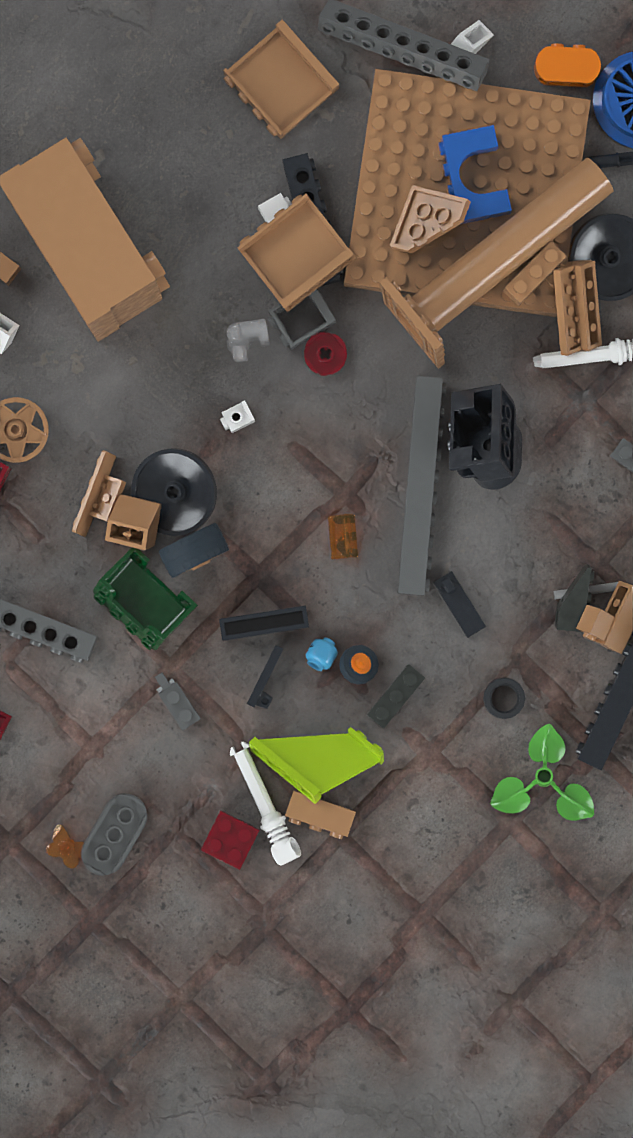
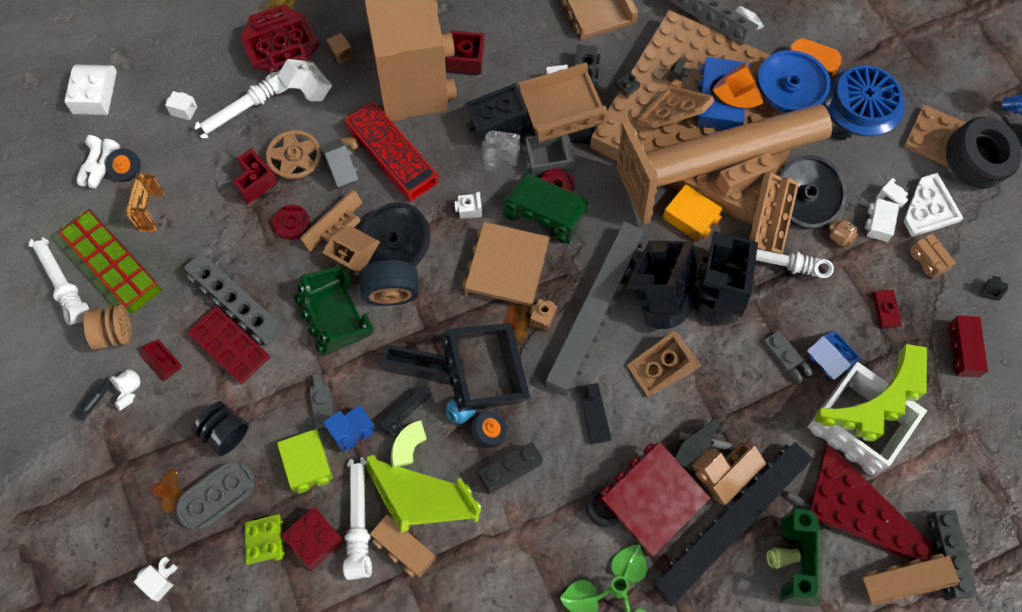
camera: 20 degrees right, 20 degrees down
(49, 510) = (291, 222): none -> dark red tile
(51, 676) = (228, 345): none -> dark red plate
(66, 388) = (350, 141): none -> medium nougat arm
(71, 420) = (338, 160): none -> brick
(89, 769) = (220, 428): none -> black wheel
(96, 937) = (155, 582): none -> white brick
(121, 381) = (391, 151): none -> red brick
(155, 219) = (468, 51): none -> dark red brick
(181, 858) = (264, 539): none -> lime hinge
(188, 767) = (305, 461): none -> lime brick
(218, 717) = (349, 428): none -> blue brick
(226, 293) = (498, 111): none -> black torso
(280, 711) = (405, 443): none -> yellowish green tile
(306, 474) = (506, 264): none -> medium nougat panel
(323, 387) = (547, 205): none -> dark green windscreen
(357, 587) = (512, 362): none -> black window
(362, 200) = (627, 84): none -> pearl dark grey tile
(366, 516) = (542, 314): none -> medium nougat brick
(414, 162) = (678, 71): none -> pearl dark grey tile
(488, 332) = (692, 213): none -> light orange brick
(492, 169) = (739, 88): none -> orange brick
(513, 524) = (663, 364): none -> medium nougat slope
(548, 405) = (725, 278): none -> black brick
(548, 674) = (653, 497): none -> dark red panel
(552, 129) = (793, 81): none -> blue dish

